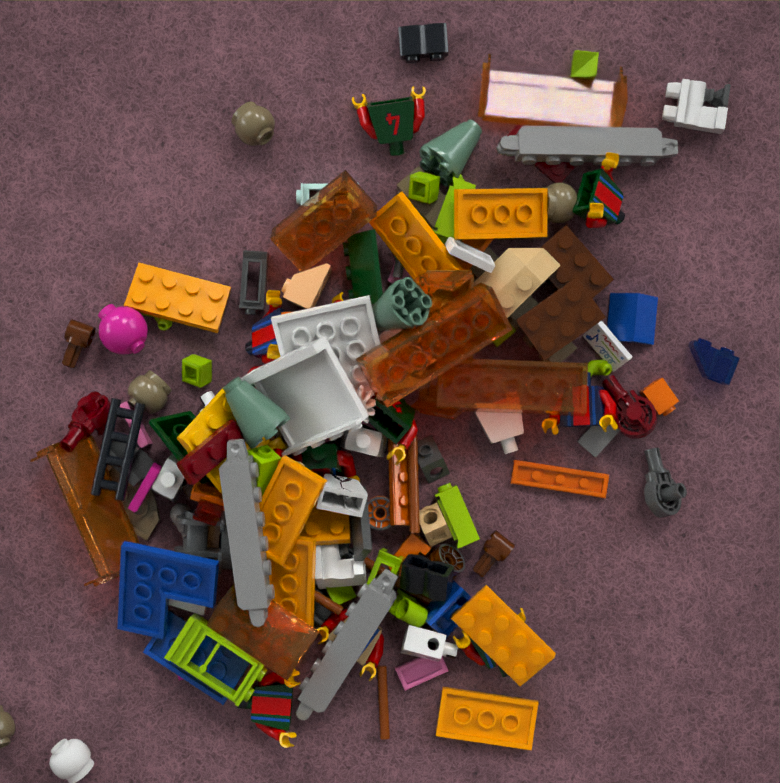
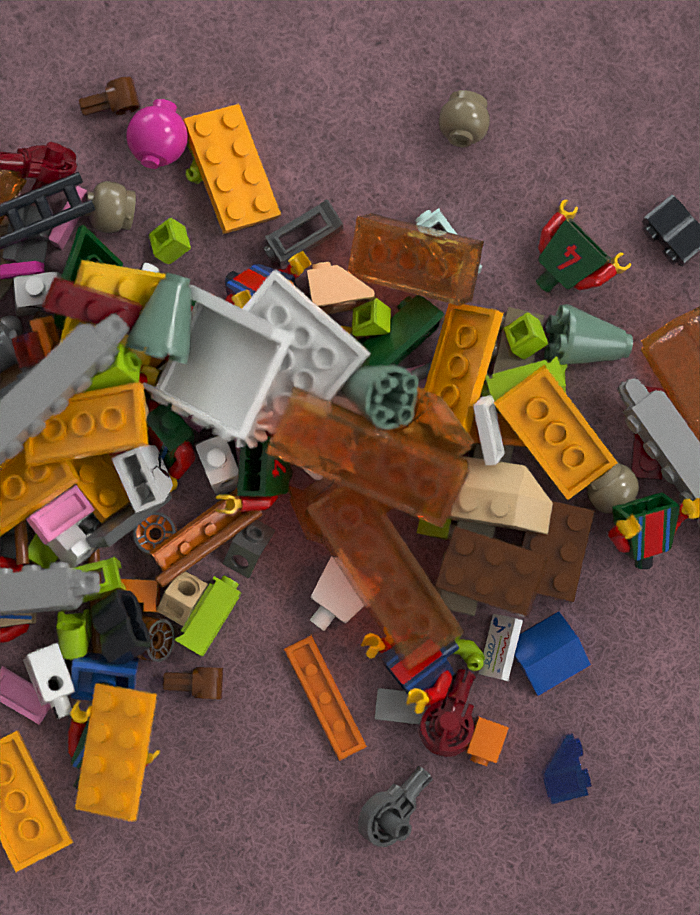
camera: 50 degrees right, 5 degrees down
(328, 566) = (60, 514): none -> bright pink tile
(342, 278) = (371, 319): none -> lime slope

